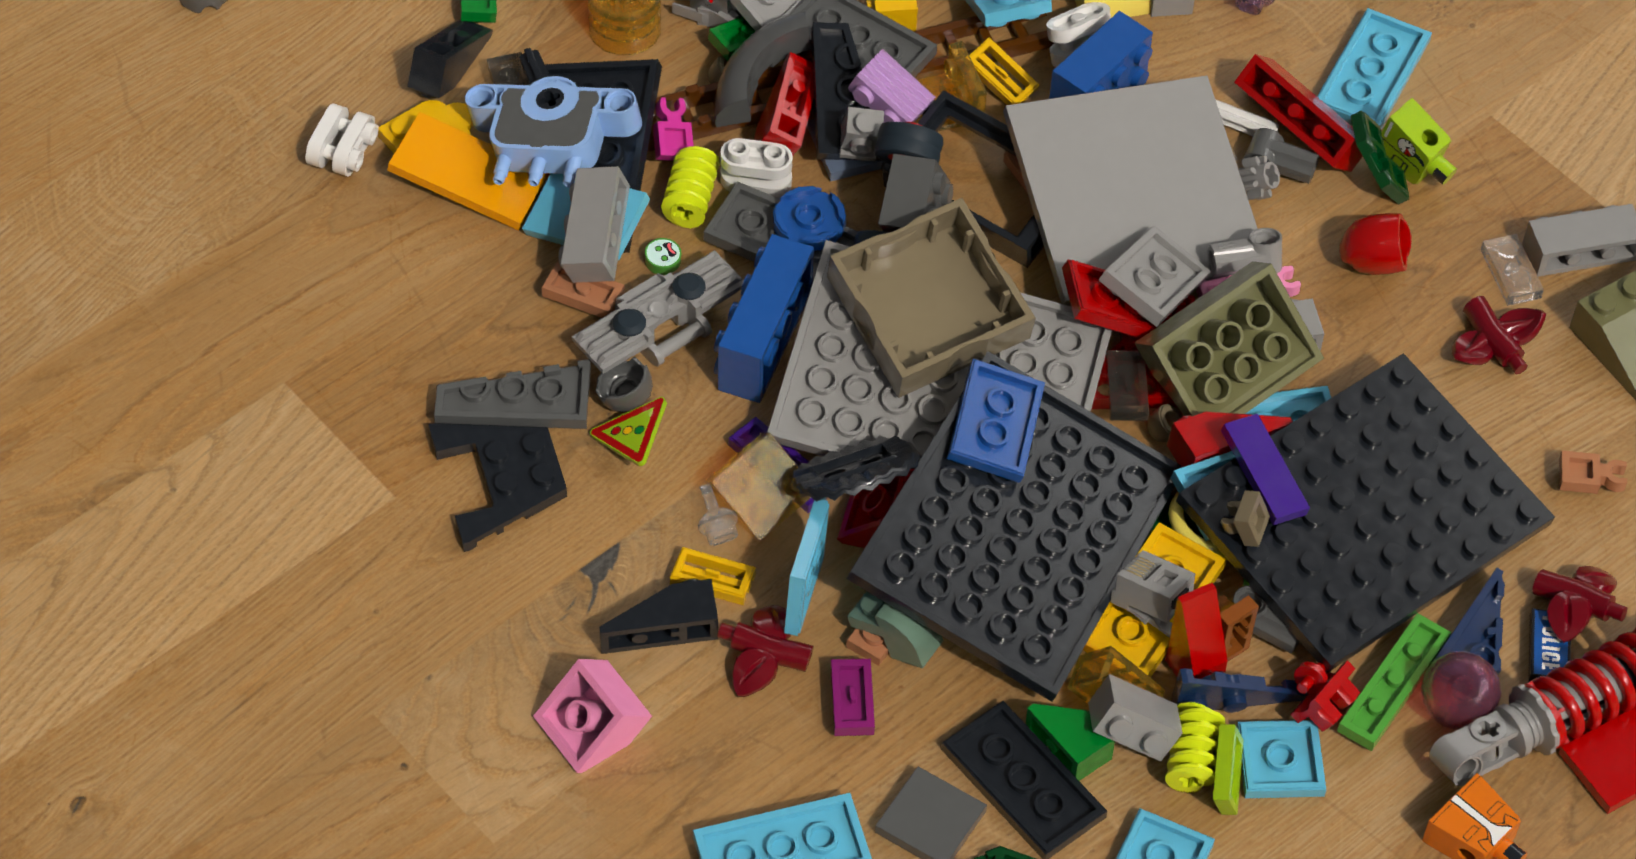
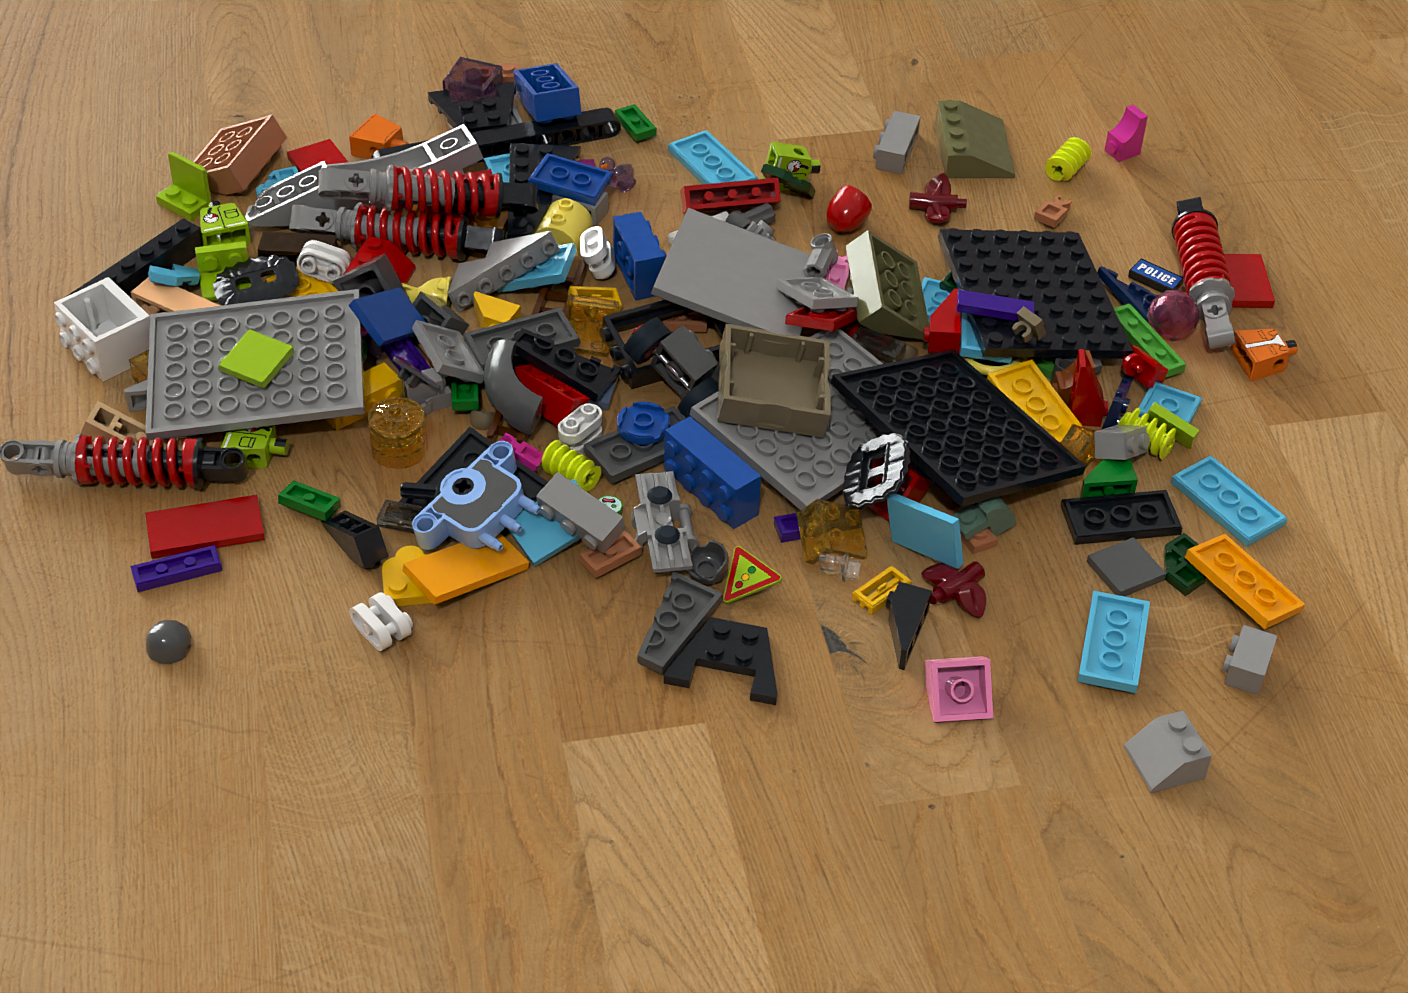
camera: 60 degrees left, 10 degrees down
(852, 697) = (1019, 562): magenta plate -> none
(860, 133) = (608, 364): light grey brick -> none
(890, 88) = (589, 336): lavender brick -> none
(996, 420) = (887, 393): blue tile -> none
(1151, 589) = (1042, 392): light grey piece -> none
(1512, 269) = (893, 177): clear plate -> none
(1578, 599) = (1139, 248): dark red plant -> none

